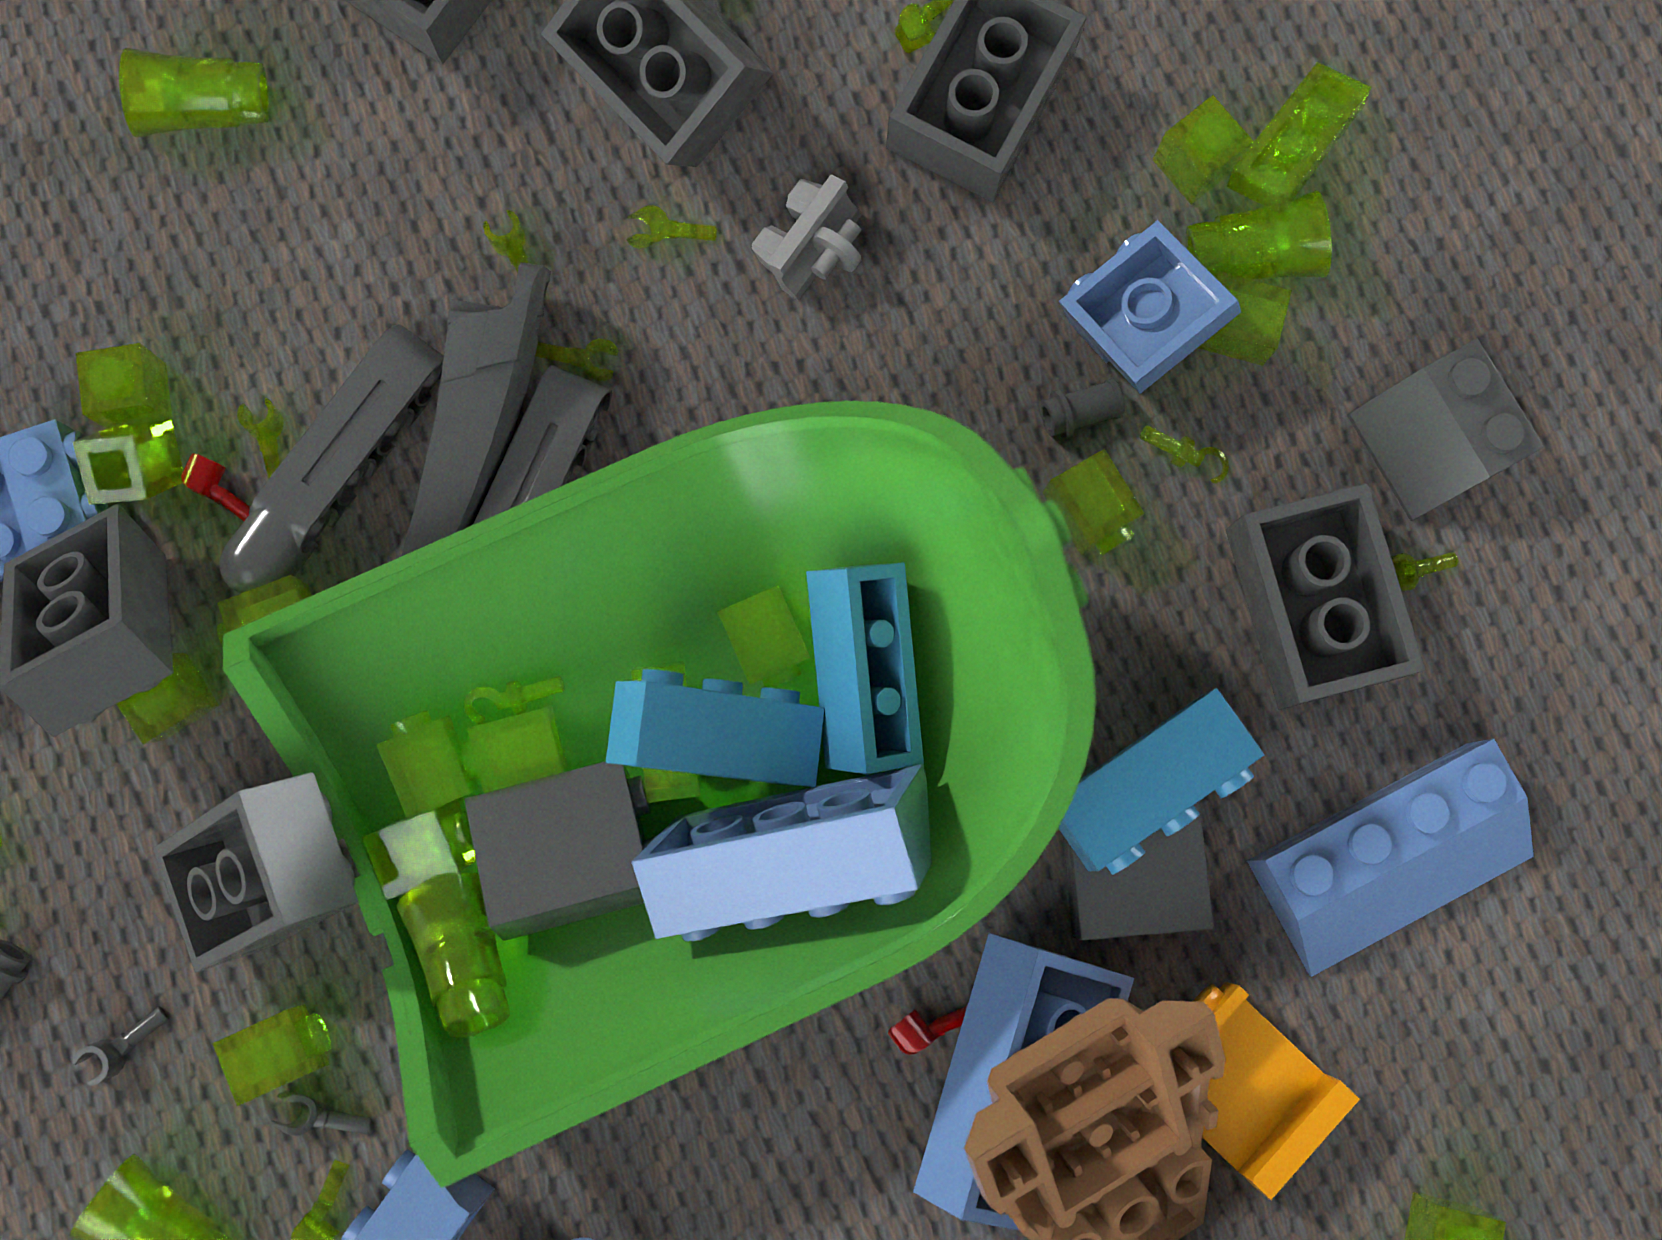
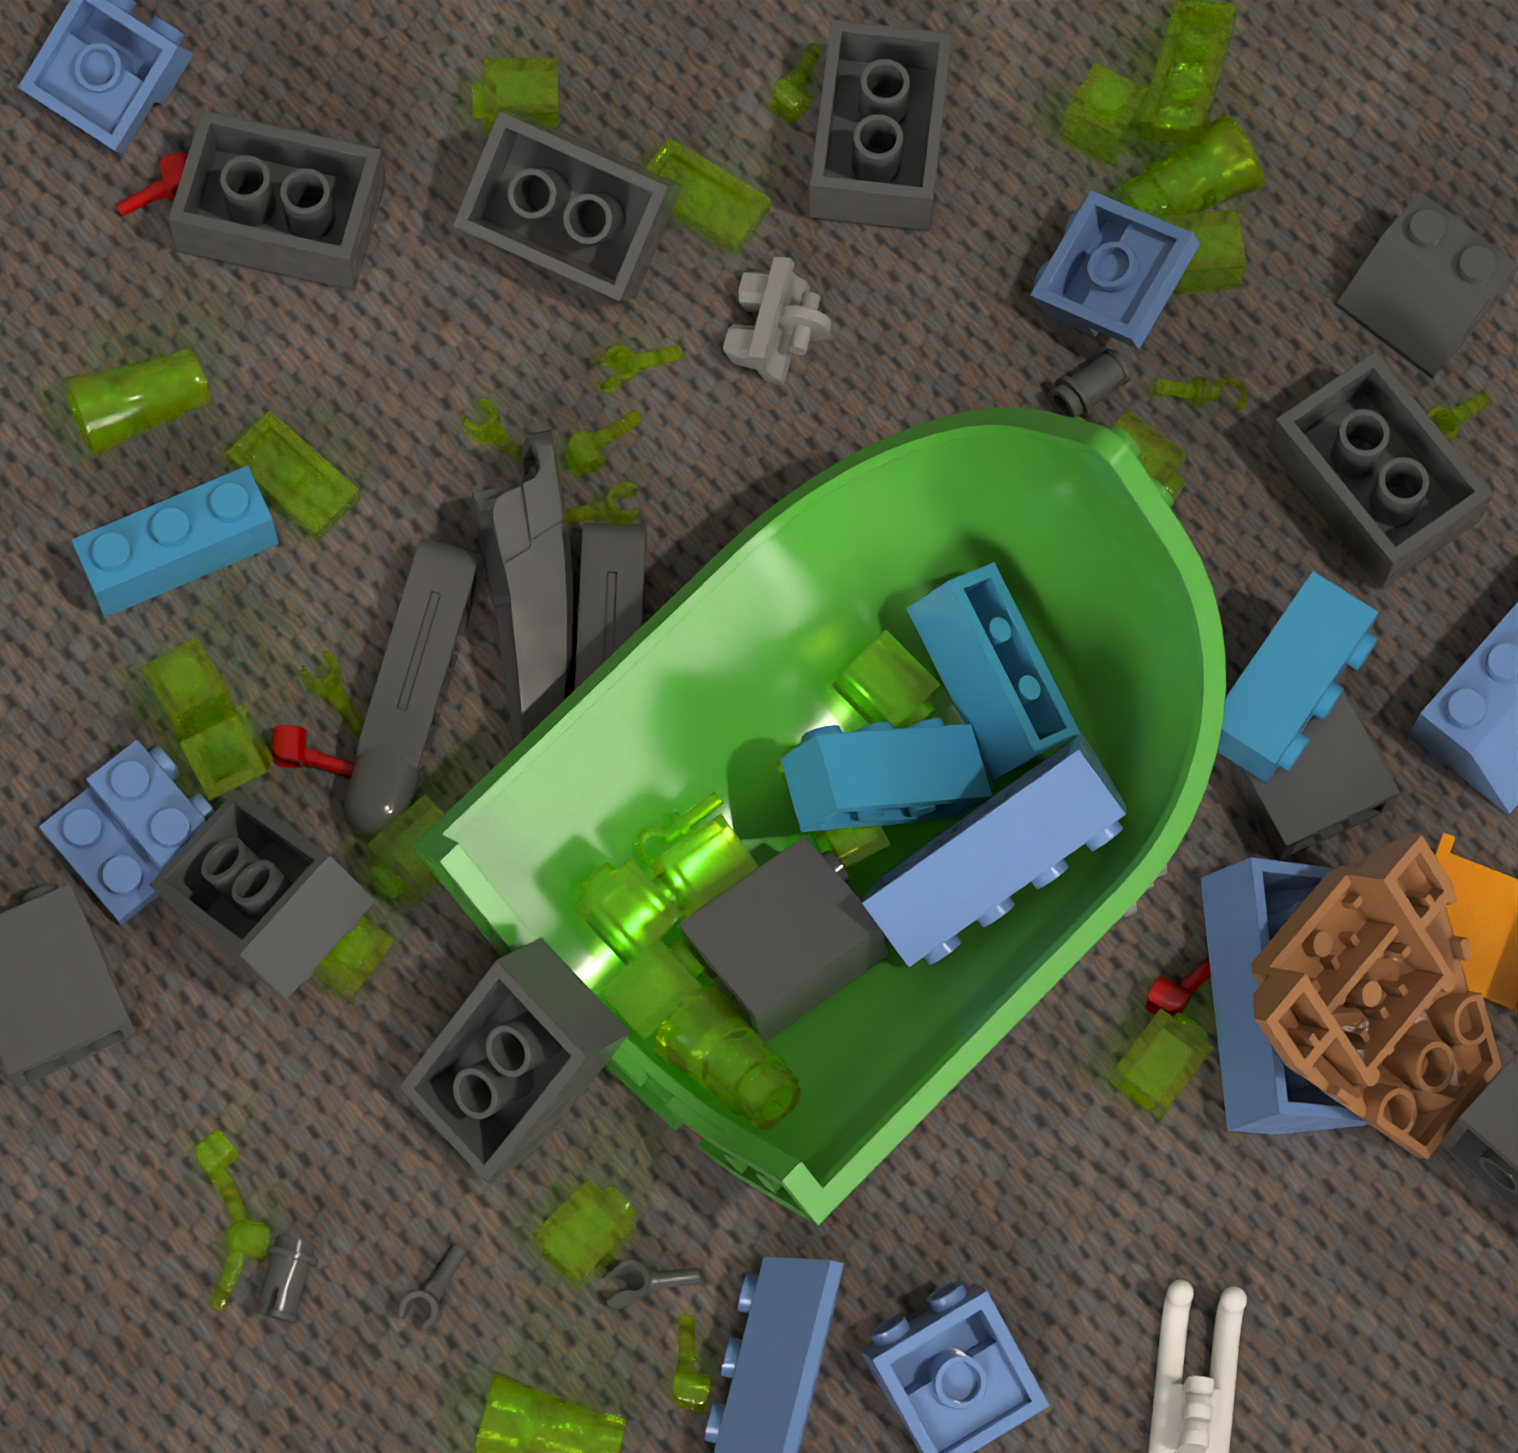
camera: 20 degrees left, 10 degrees down
(170, 242) = (176, 541): none -> dark azure brick
(310, 220) = (294, 475): none -> clear neon green plate
(588, 291) = (585, 447): none -> clear neon green hand
(800, 94) = (711, 197): none -> clear neon green plate
(880, 1100) = (1162, 1062): none -> clear neon green brick

